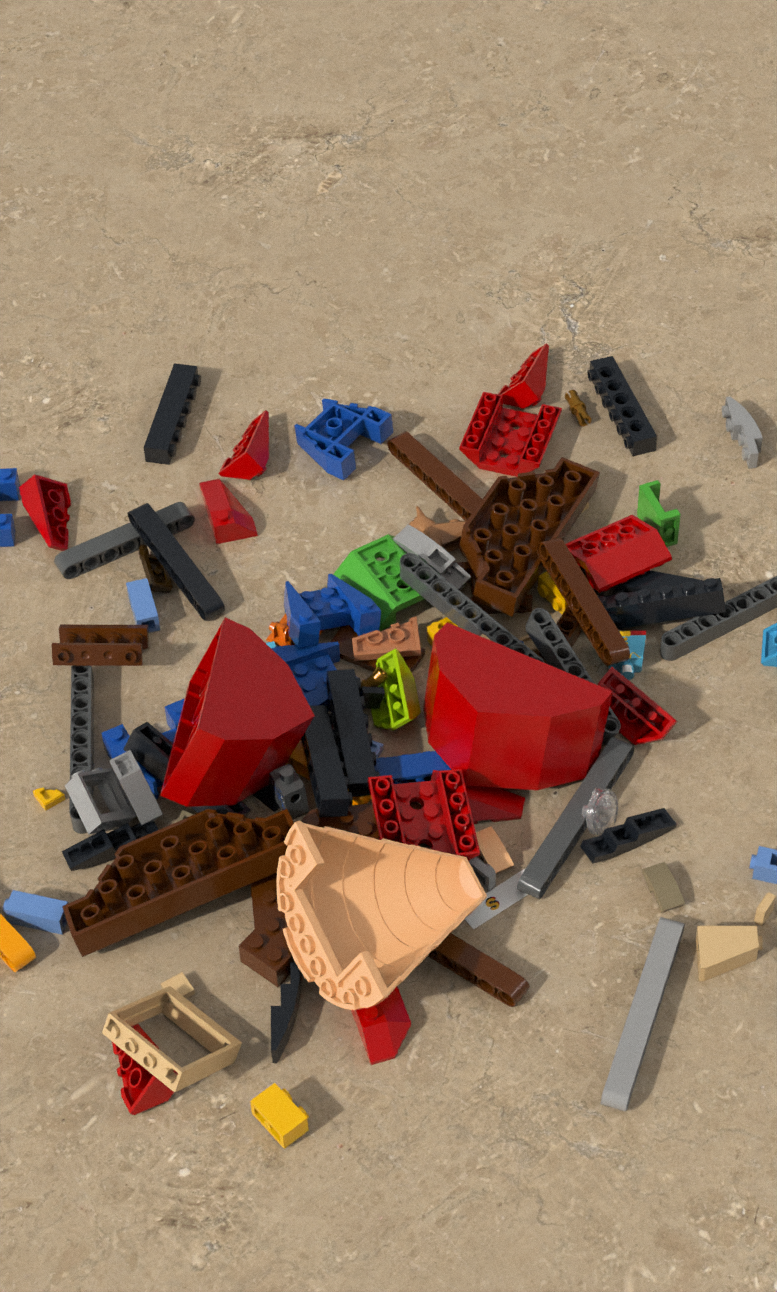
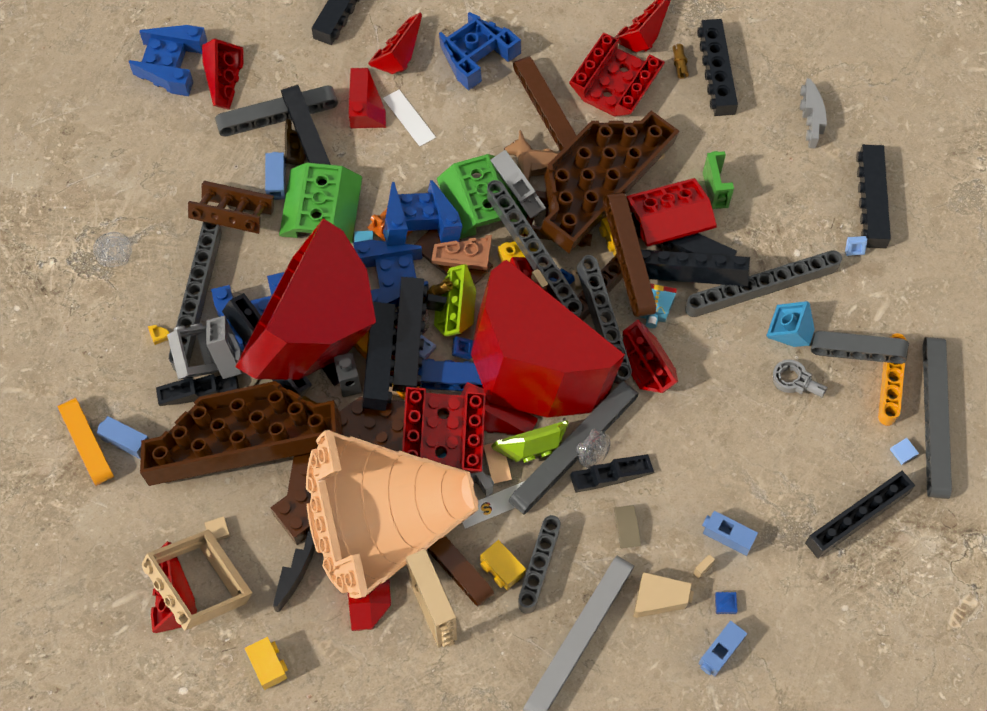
camera: 10 degrees right, 15 degrees up
(186, 616) = (334, 200): none -> bright green slope
(282, 521) = (409, 117): none -> white sticker
(415, 740) = (462, 347): none -> blue tile
(446, 961) = (432, 598): none -> tan window
(526, 820) = (532, 443): none -> lime wedge
(531, 953) = (502, 565): none -> yellow brick
(573, 954) = (538, 573): none -> dark grey beam

